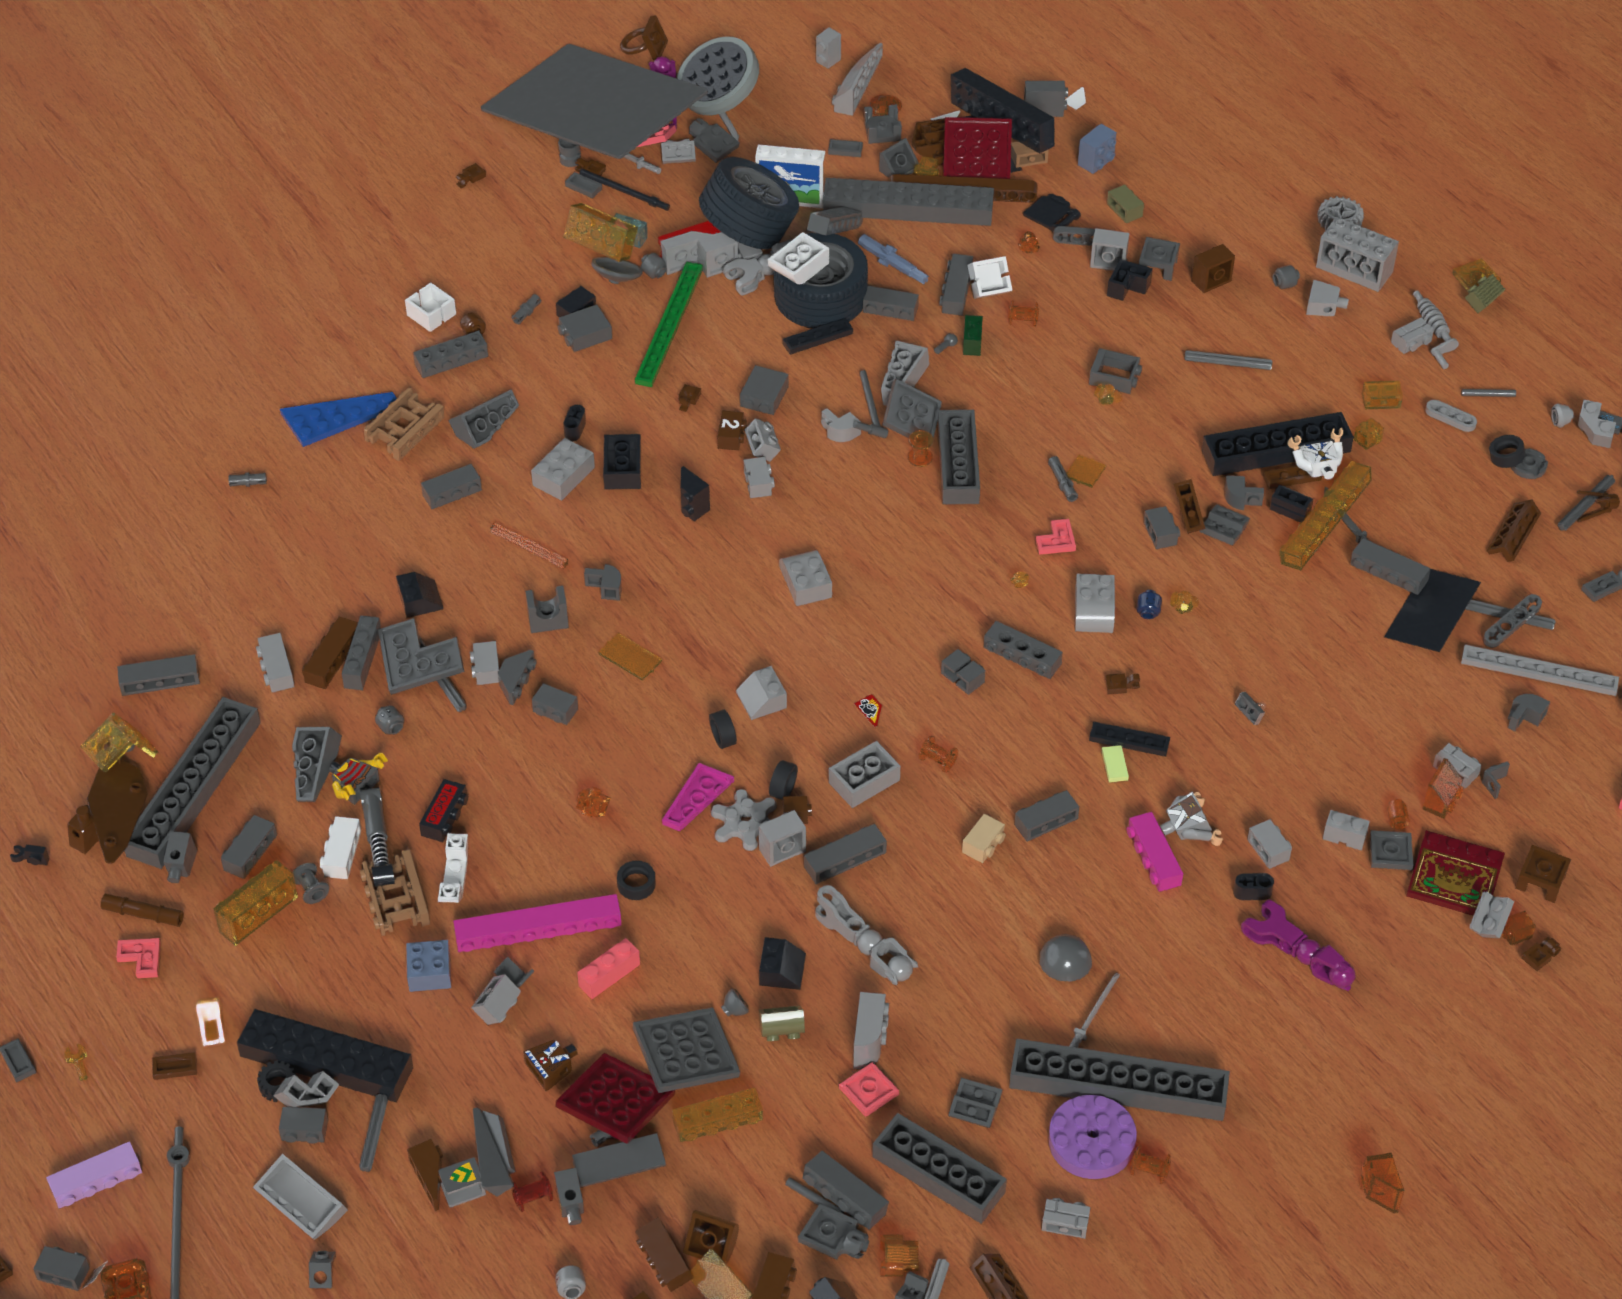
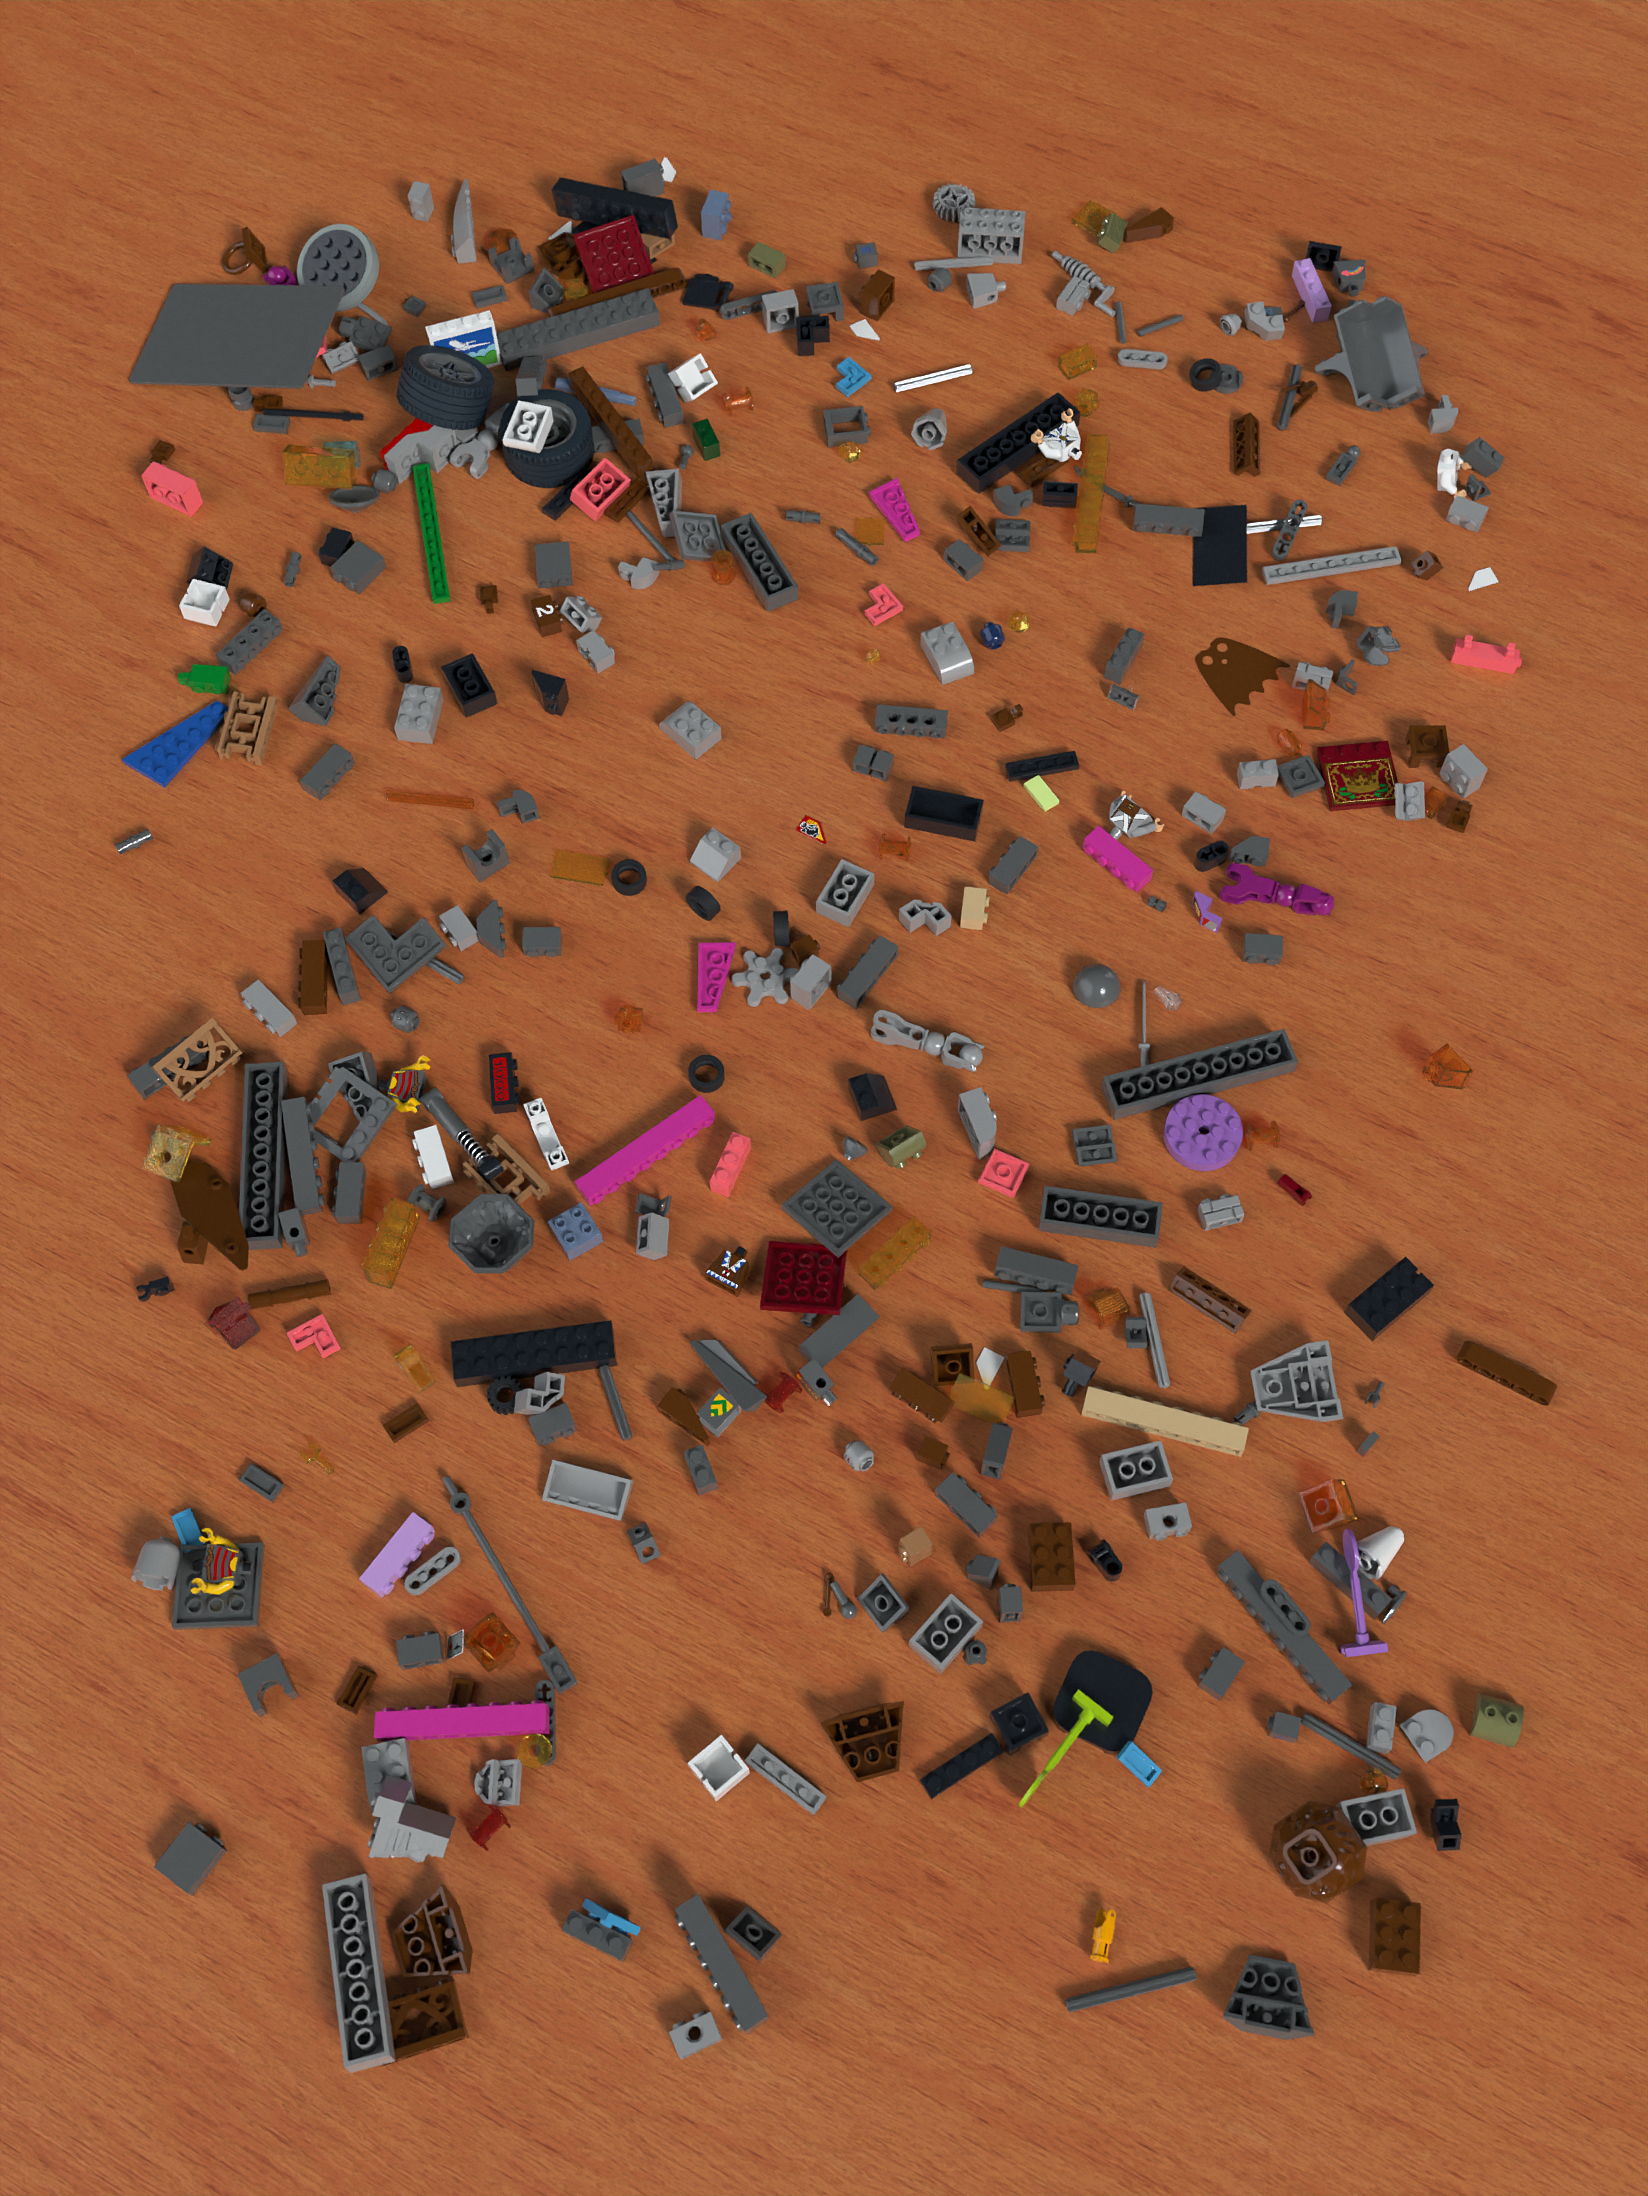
camera: 25 degrees left, 15 degrees up
(77, 912) = (233, 1323): none -> clear red piece
(106, 1203) = (437, 1562): none -> light grey plate
(159, 669) = (202, 1034): none -> medium nougat fence
(225, 795) = (301, 1155): none -> dark grey brick
(295, 798) = (369, 1125): none -> dark grey hinge
(346, 930) = (491, 1221): none -> dark grey rock
(394, 370) = (207, 679): none -> green hinge
(413, 1226) = (700, 1470): none -> dark grey brick
(454, 281) = (210, 568): none -> black slope
(460, 205) = (172, 488): none -> coral brick
(673, 692) = (633, 889): none -> black tyre
(704, 165) = (378, 362): none -> dark grey brick
(749, 1259) = (988, 1365): none -> white sticker
(772, 133) = (414, 306): none -> dark grey tile
(845, 341) = (599, 489): none -> coral brick
(866, 361) = (627, 500): none -> reddish brown plate
(887, 286) = (610, 422): none -> reddish brown brick
(923, 820) = (919, 913): none -> light grey brick
(1003, 741) = (943, 813): none -> black piece
(1027, 434) = (803, 516): none -> dark grey pin
(1121, 459) = (893, 505): none -> dark pink wing
(1132, 1000) = (1168, 998): none -> clear cone
(1149, 333) = (854, 377): none -> dark azure plate
(1156, 1229) = (1292, 1187): none -> dark red bar
(1174, 911) = (1160, 905): none -> dark grey piece
(1186, 296) = (864, 330): none -> white sticker
(1196, 401) = (930, 429): none -> light grey cone
(1217, 931) = (1207, 919): none -> medium lavender slope
(1224, 232) = (865, 255): none -> dark grey brick
(1256, 992) = (1262, 948): none -> dark grey brick
(1272, 671) = (1124, 655): none -> dark grey brick
(1298, 898) = (1251, 851): none -> dark grey slope
(1310, 268) = (953, 263): none -> light grey axle
(1390, 735) = (1241, 675): none -> reddish brown piece
(1453, 366) = (1120, 319): none -> dark grey bar
(1529, 302) = (1150, 227): none -> reddish brown slope
(1539, 760) = (1373, 646): none -> dark grey piece
(1565, 910) = (1463, 771): none -> light grey brick

